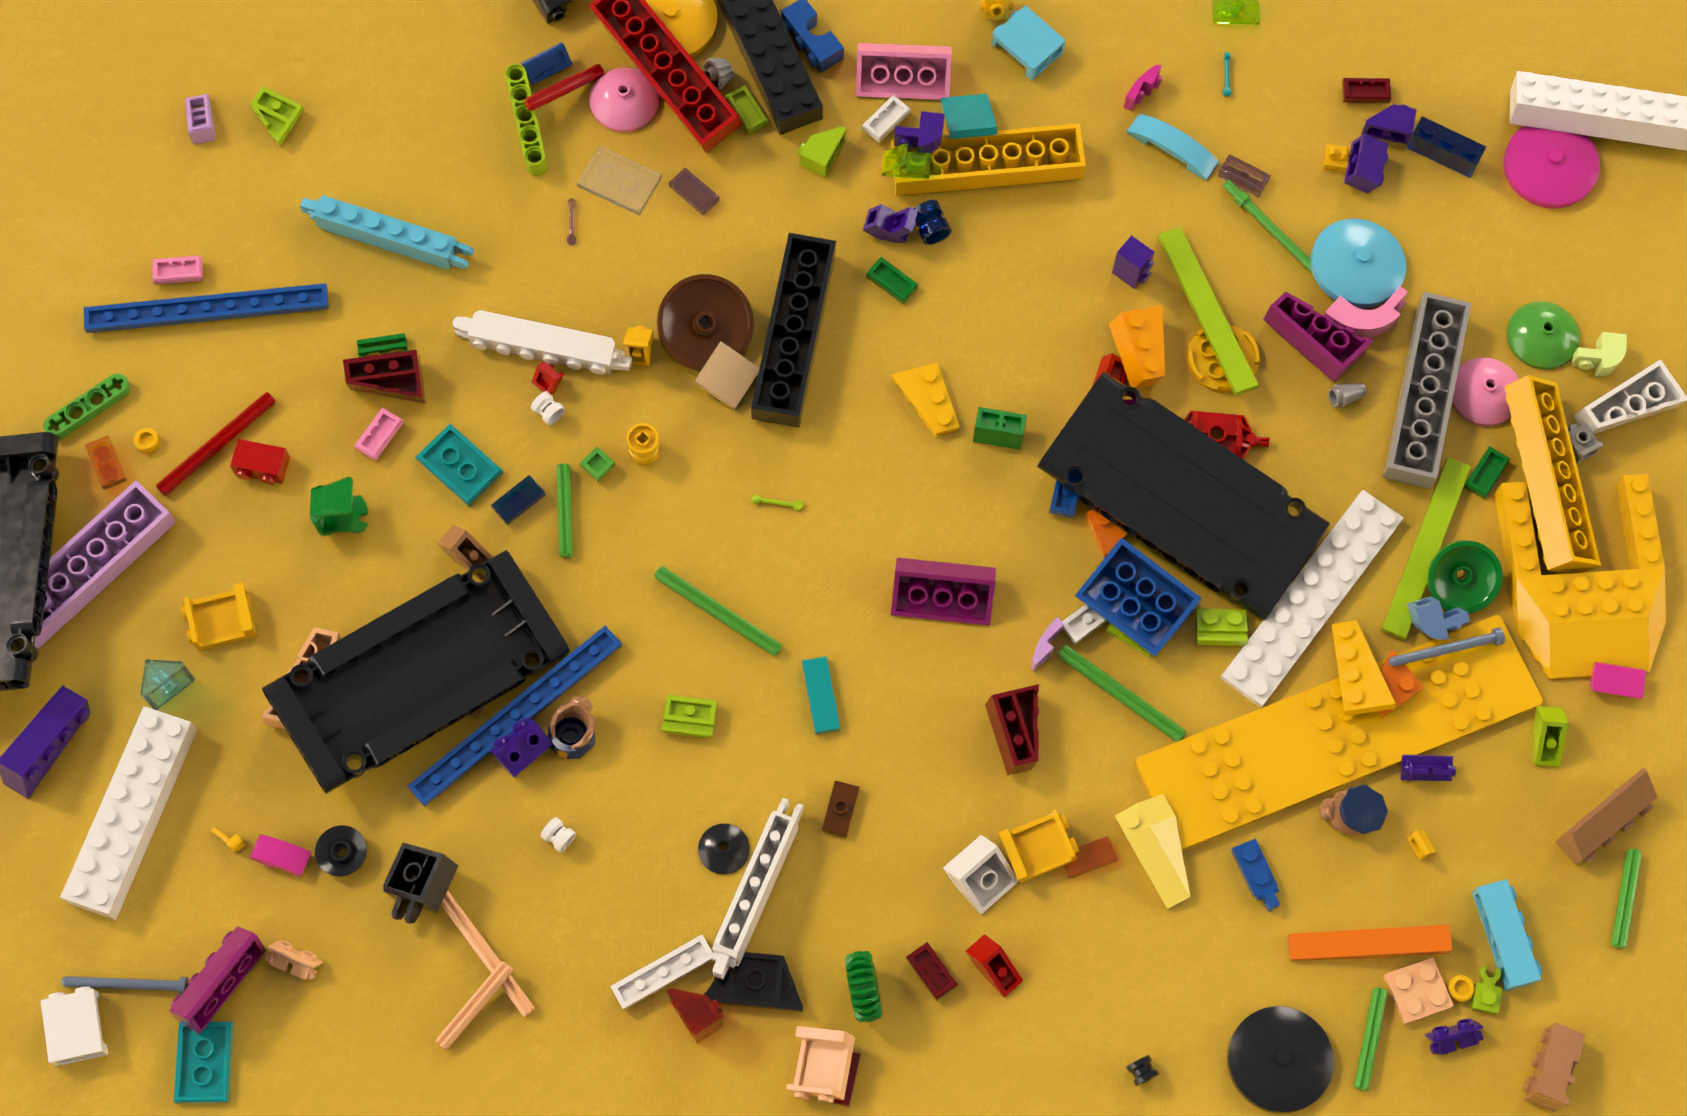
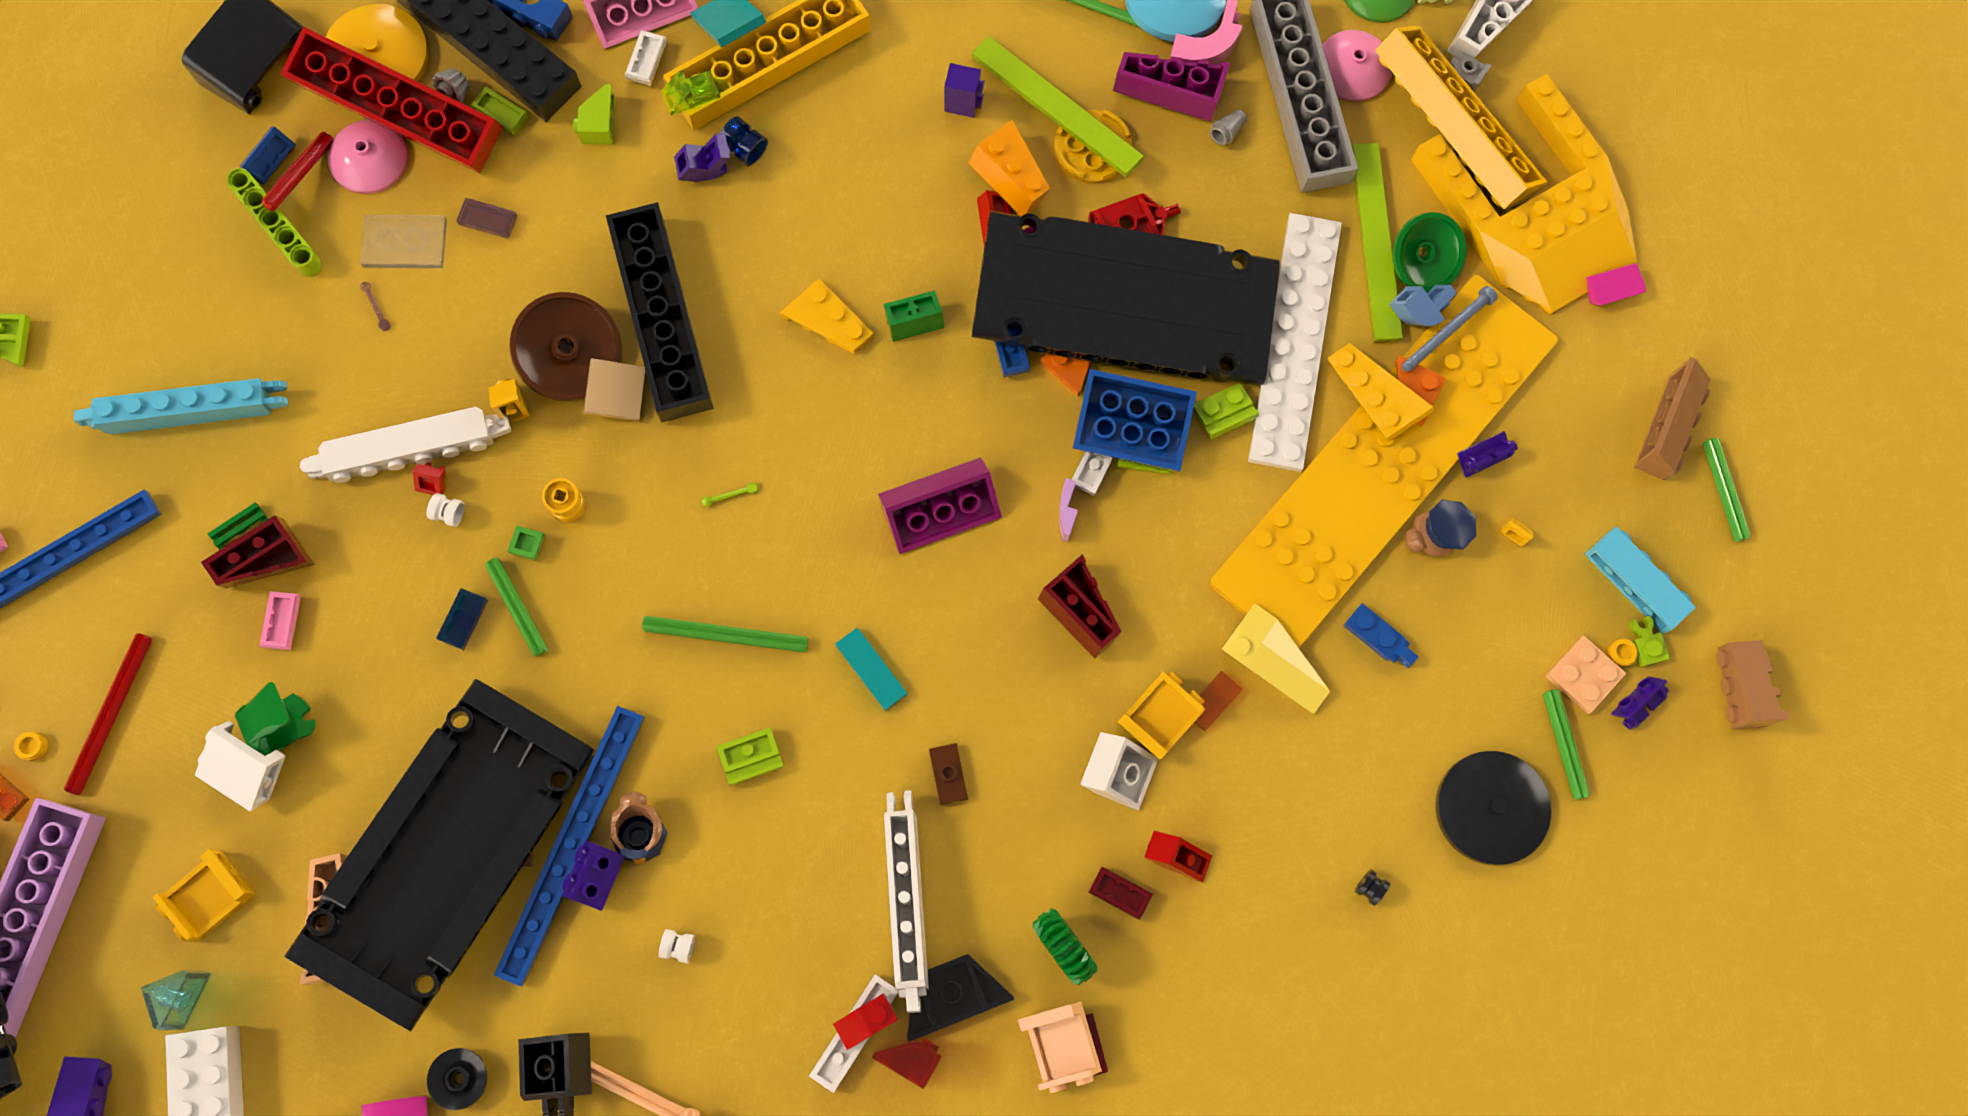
camera: 30 degrees left, 5 degrees up
(260, 462) = (165, 710): red brick -> none
(294, 531) = (238, 768): none -> white panel
(459, 464) = (381, 612): teal tile -> none
(464, 549) = (430, 697): medium nougat slope -> none
(676, 965) = (865, 1021): none -> red slope
(723, 861) = (856, 888): black dish -> none
(891, 280) = (732, 217): green tile -> none
(926, 137) = (696, 57): dark purple brick -> none
(1121, 693) = (1163, 522): bright green axle -> none
(1370, 943) = (1520, 651): orange slope -> none
(1486, 472) = (1395, 142): green tile -> none
(1549, 736) = (1581, 367): lime slope -> none

